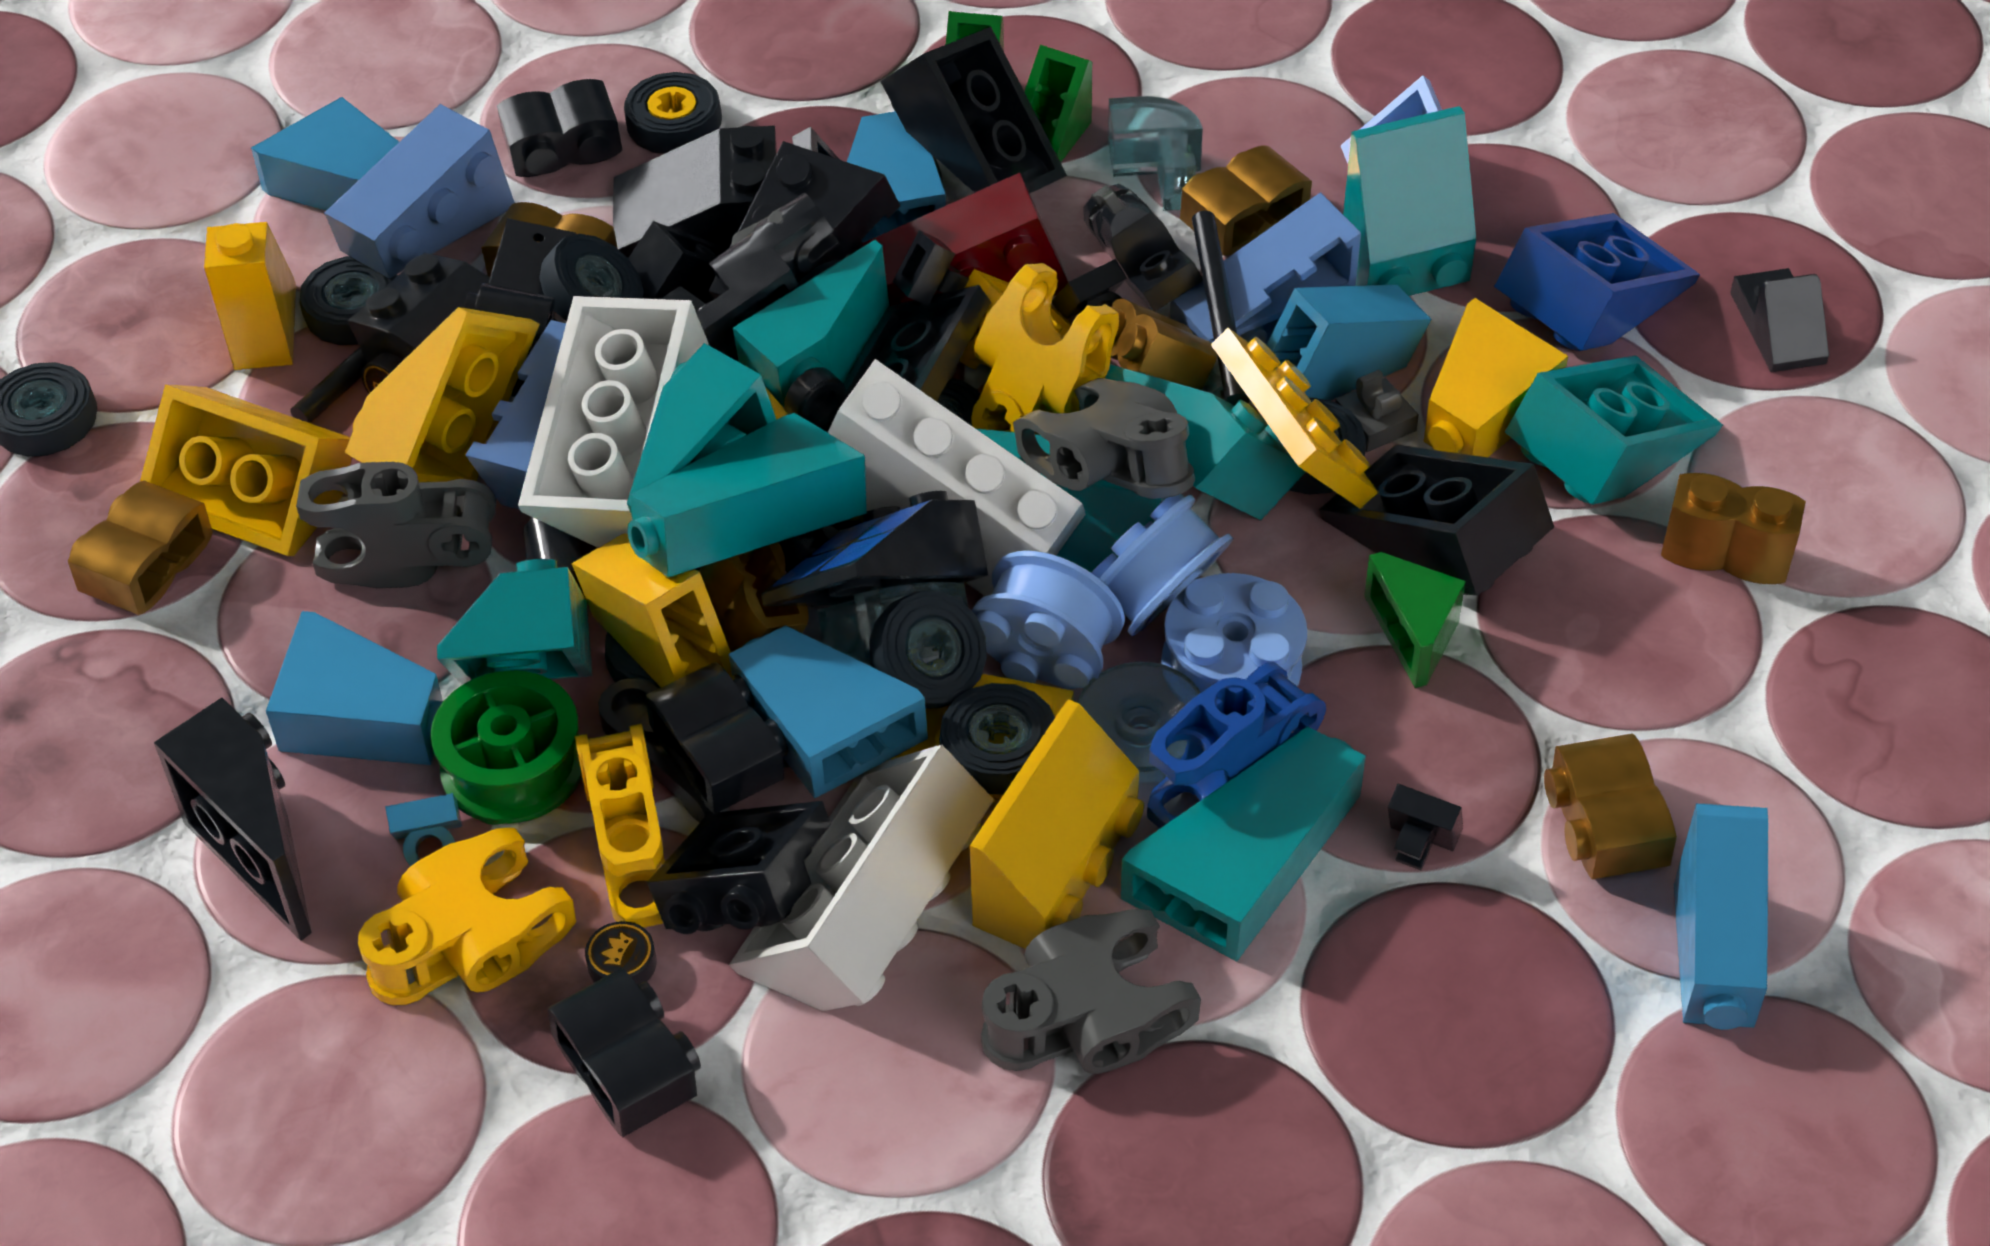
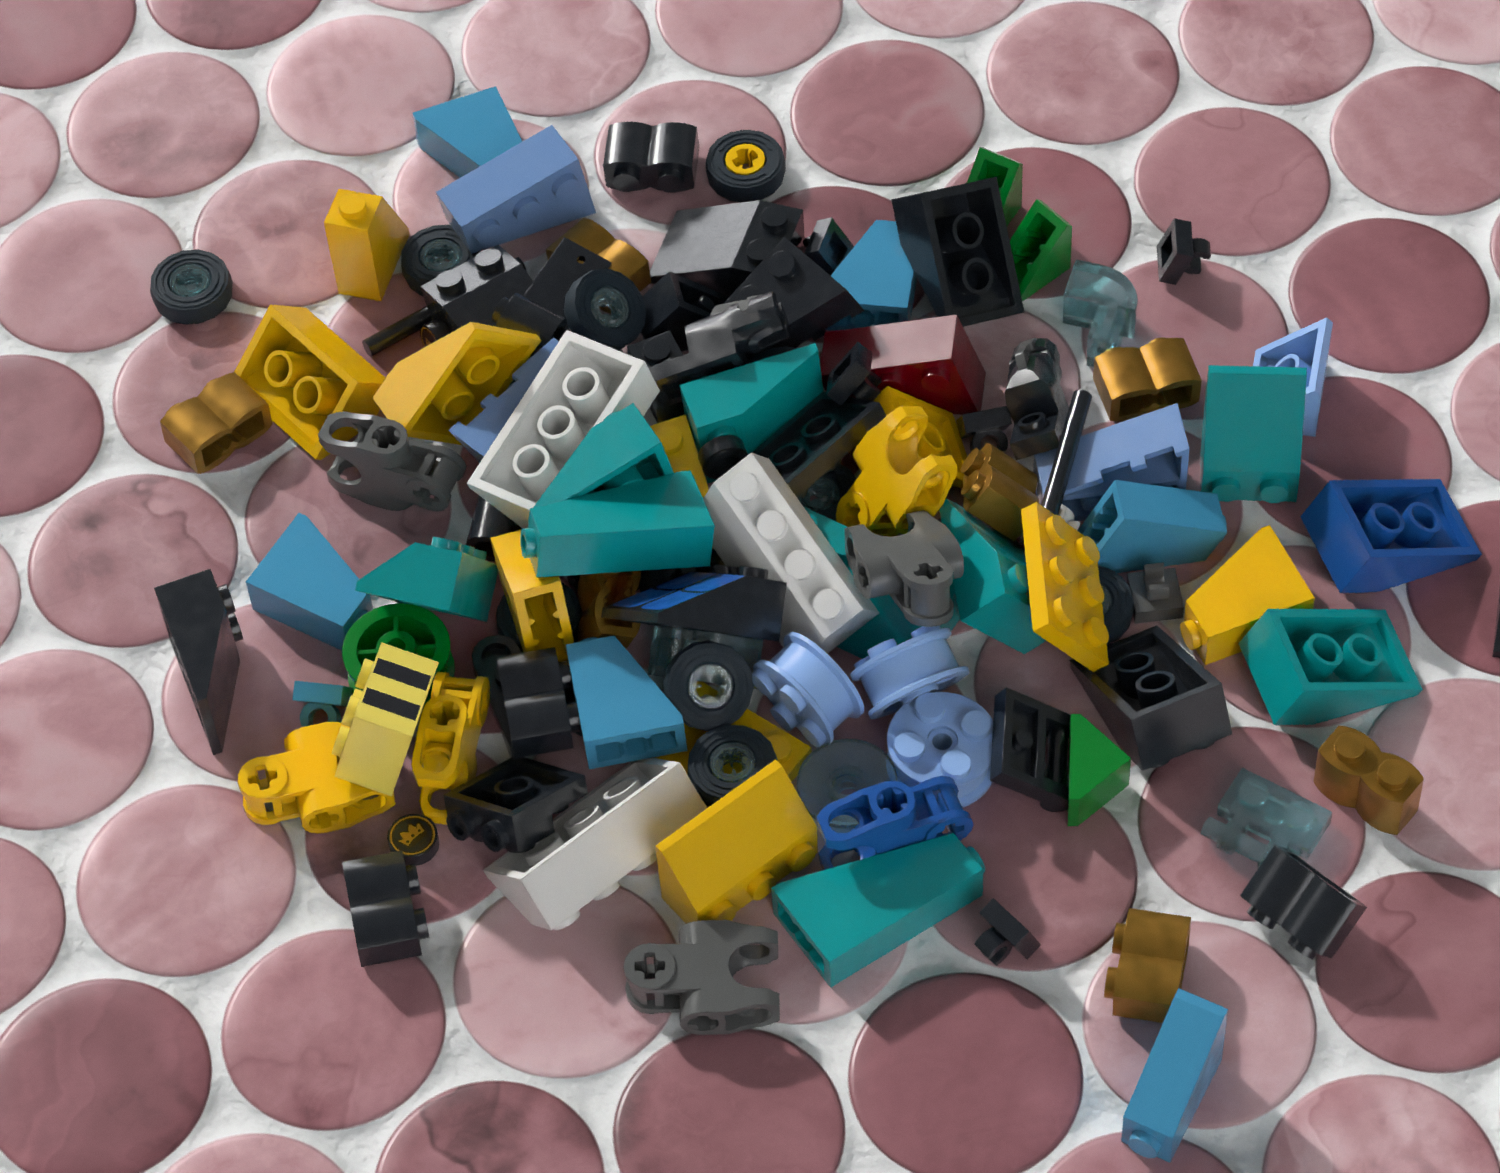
camera: 25 degrees right, 5 degrees up
(537, 807) = (382, 718): none -> light yellow brick
(1208, 69) = (1180, 252): none -> black tile
(1339, 610) = (1019, 749): none -> black plate
(1643, 613) = (1268, 812): none -> clear light blue plate
(1744, 679) = (1302, 903): none -> black brick

